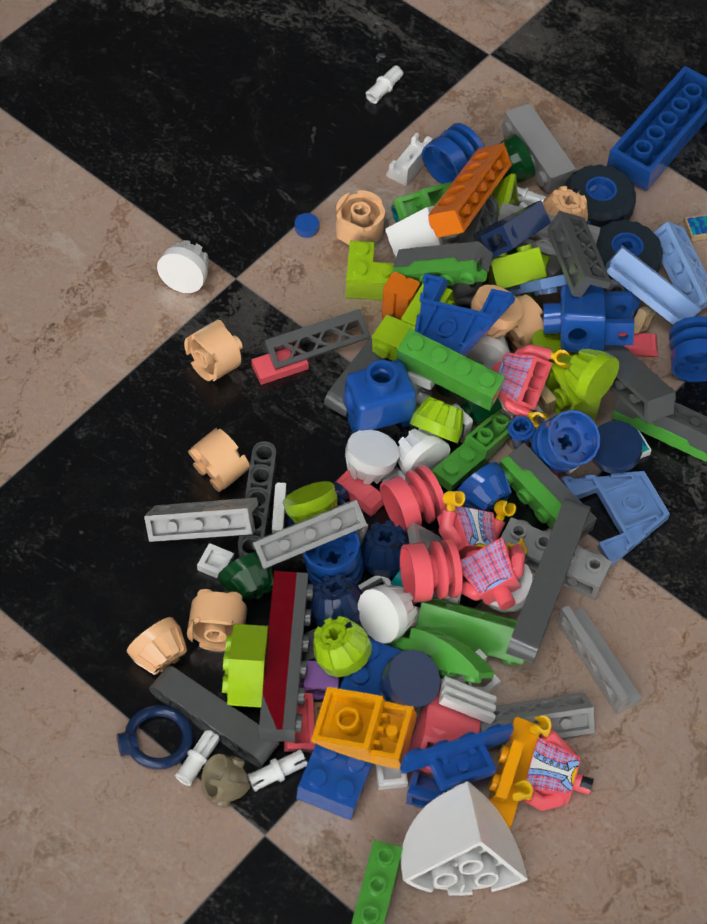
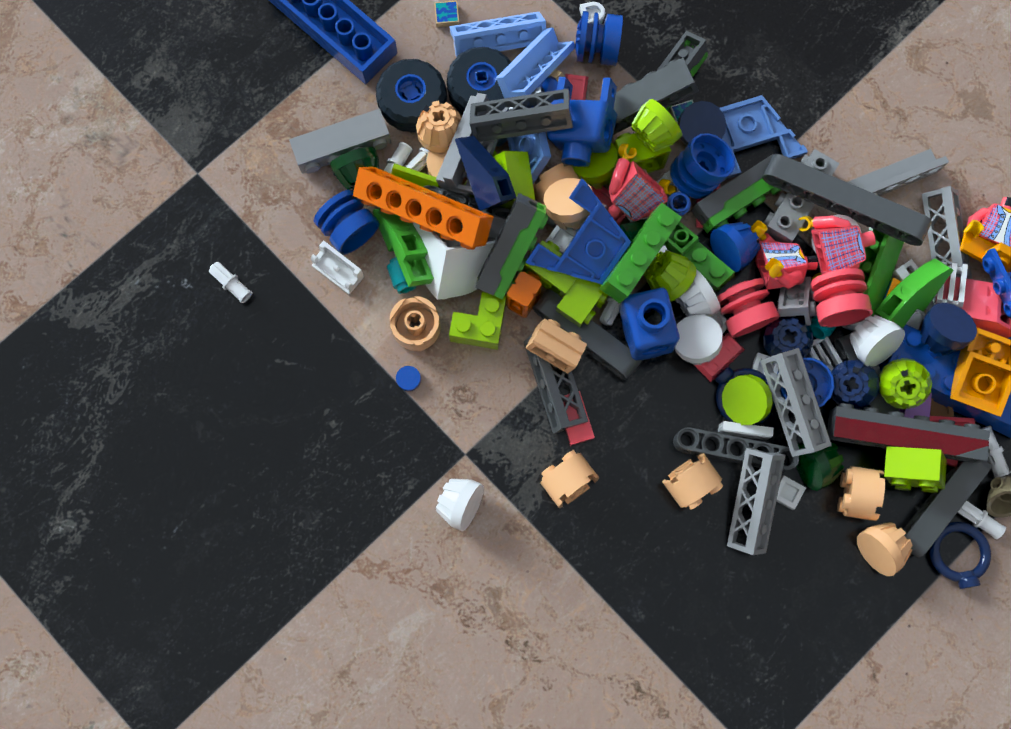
camera: 85 degrees left, 20 degrees up
(349, 325) = (556, 345): none -> light nougat brick

